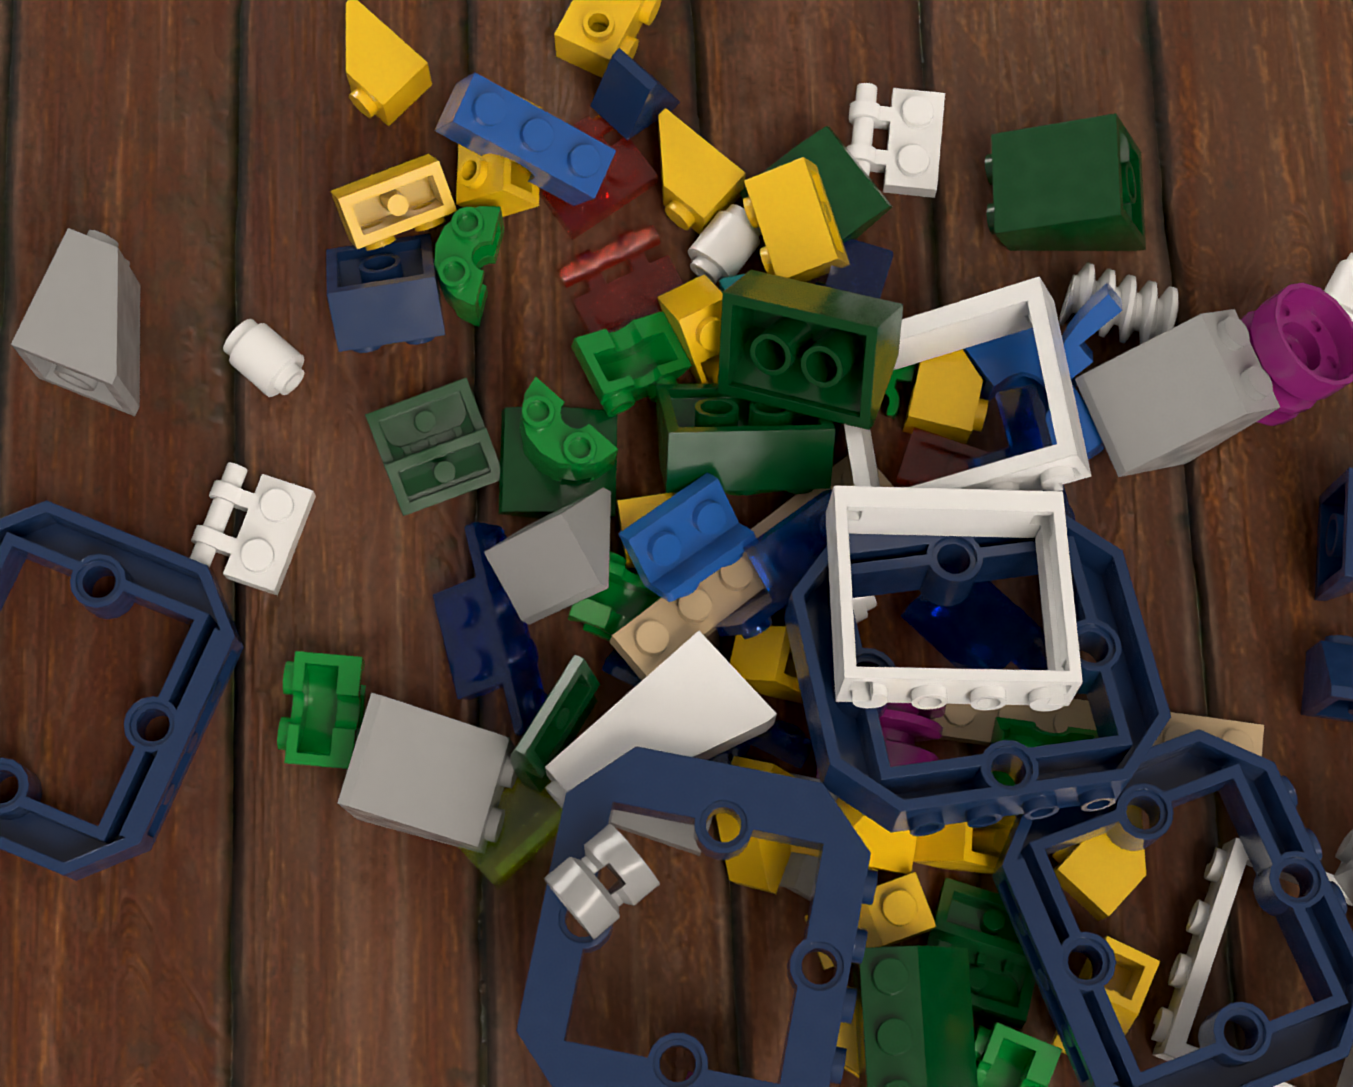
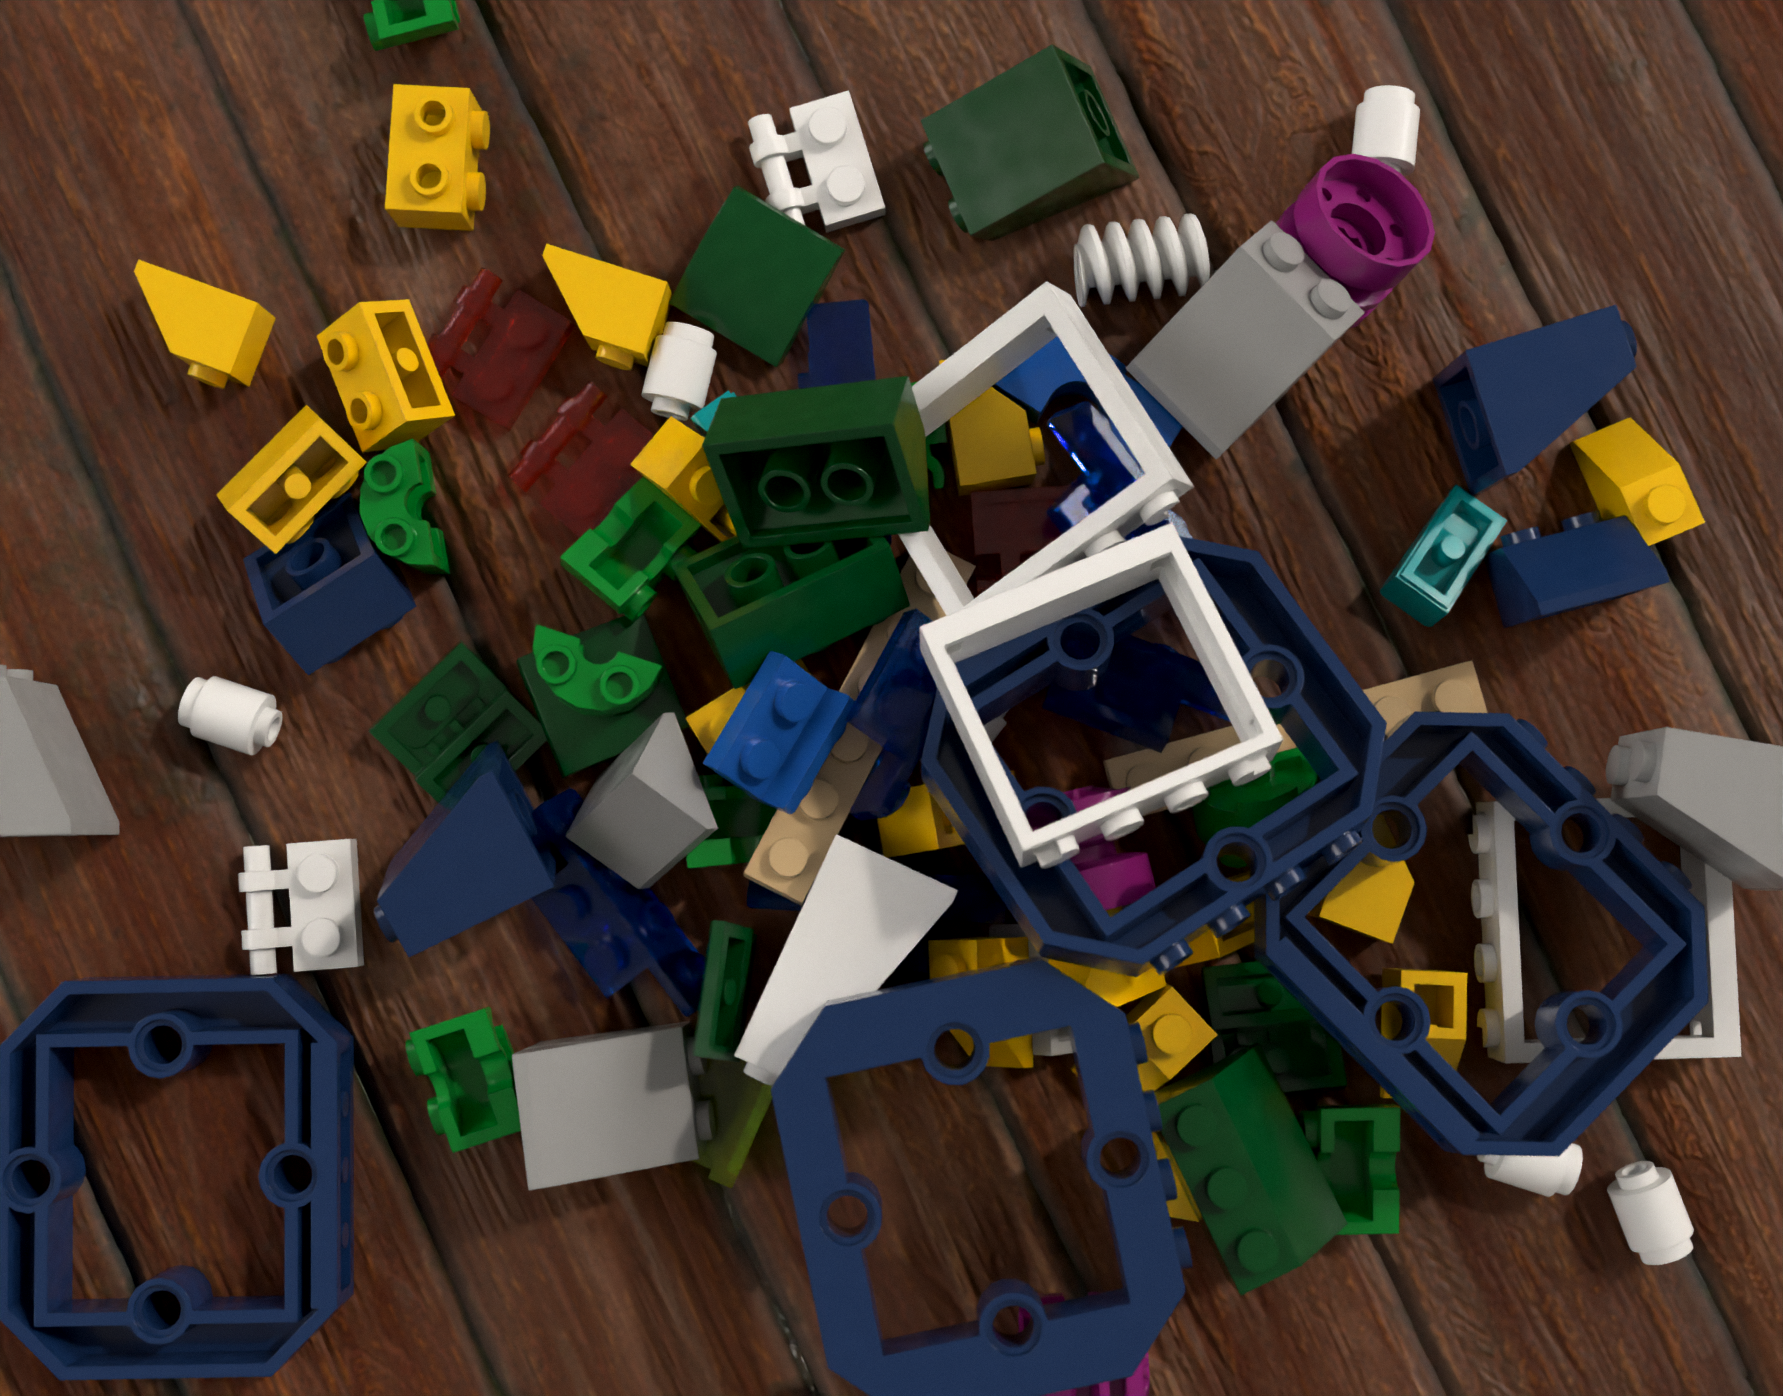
camera: 20 degrees left, 10 degrees up
(401, 536) = (467, 858): none -> dark blue slope
(503, 124) = (405, 351): blue arch -> none
(586, 896) = (841, 1204): light grey wheel -> none
(630, 96) = (503, 243): dark blue slope -> none
(794, 221) = (746, 319): yellow brick -> none
(1090, 318) = (1114, 298): blue slope -> none
(1272, 636) = (1443, 557): none -> teal slope

